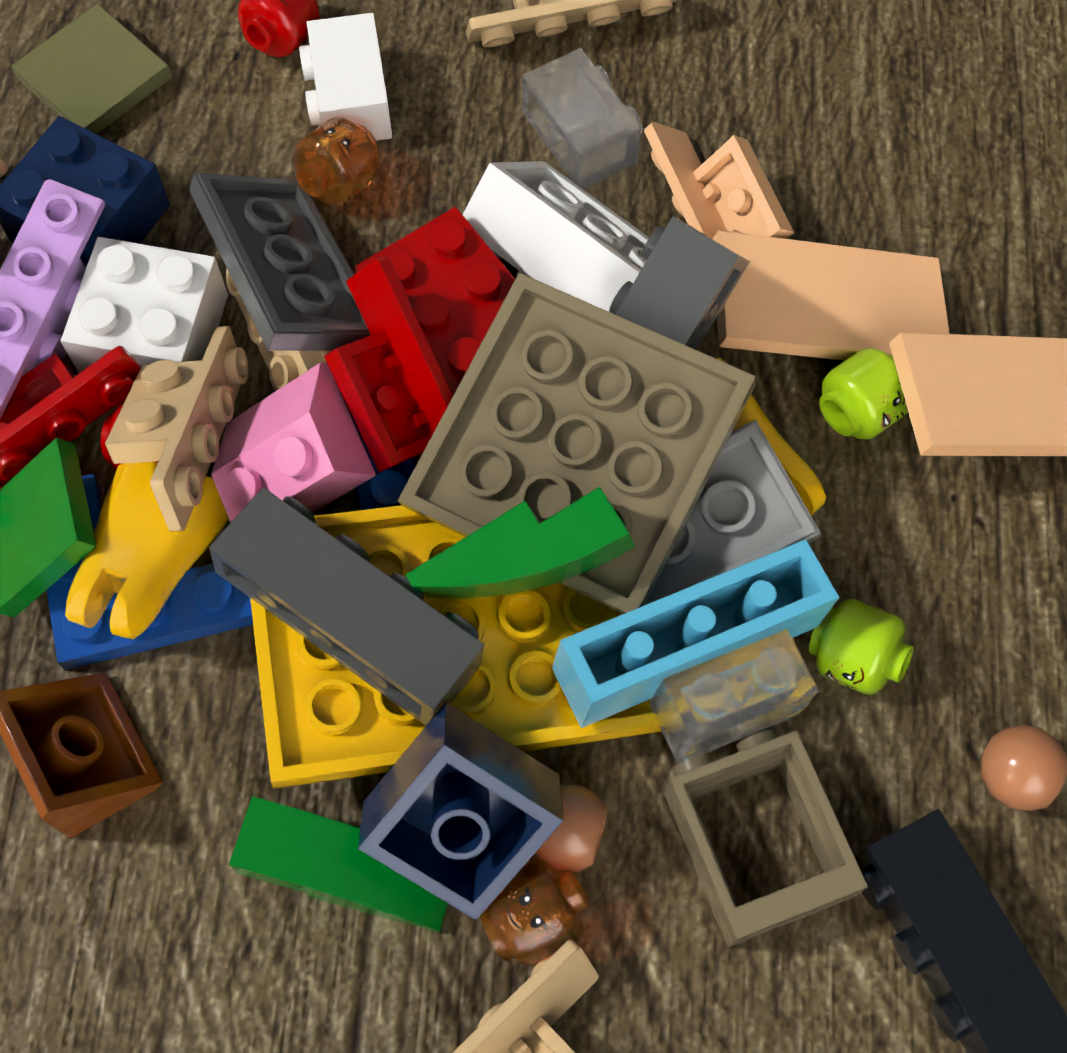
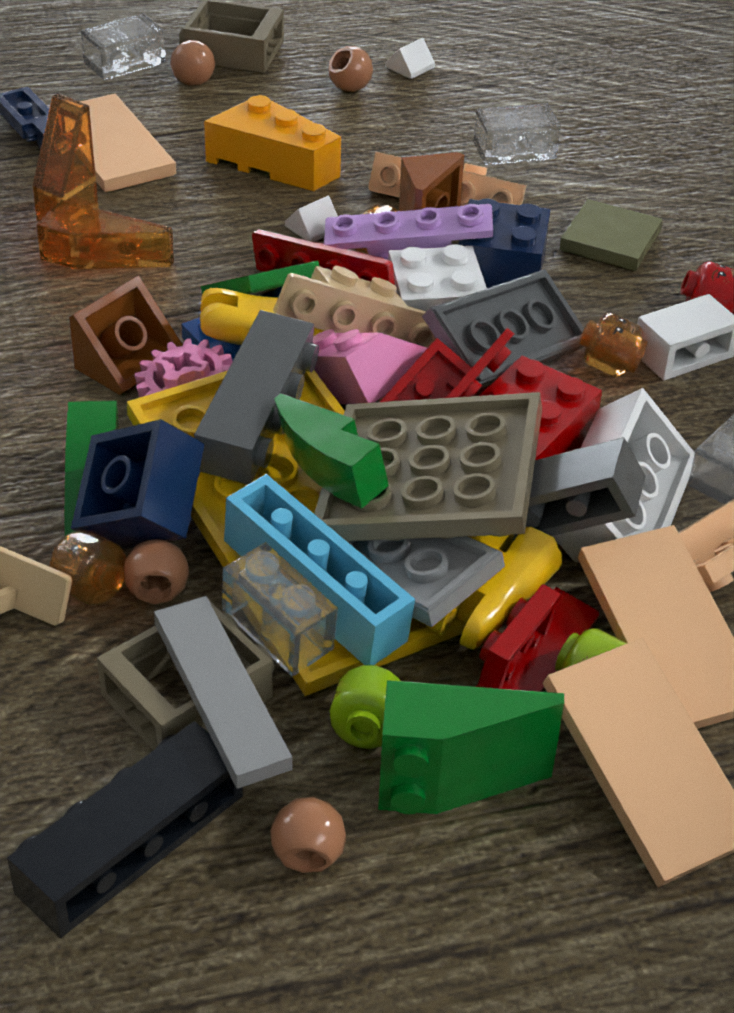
camera: 70 degrees right, 25 degrees down
(177, 707) = (180, 366): none -> bright pink gear
(842, 801) = (223, 692): none -> light grey tile
(850, 477) = (533, 640): none -> red bracket
(976, 578) = (463, 744): none -> green slope

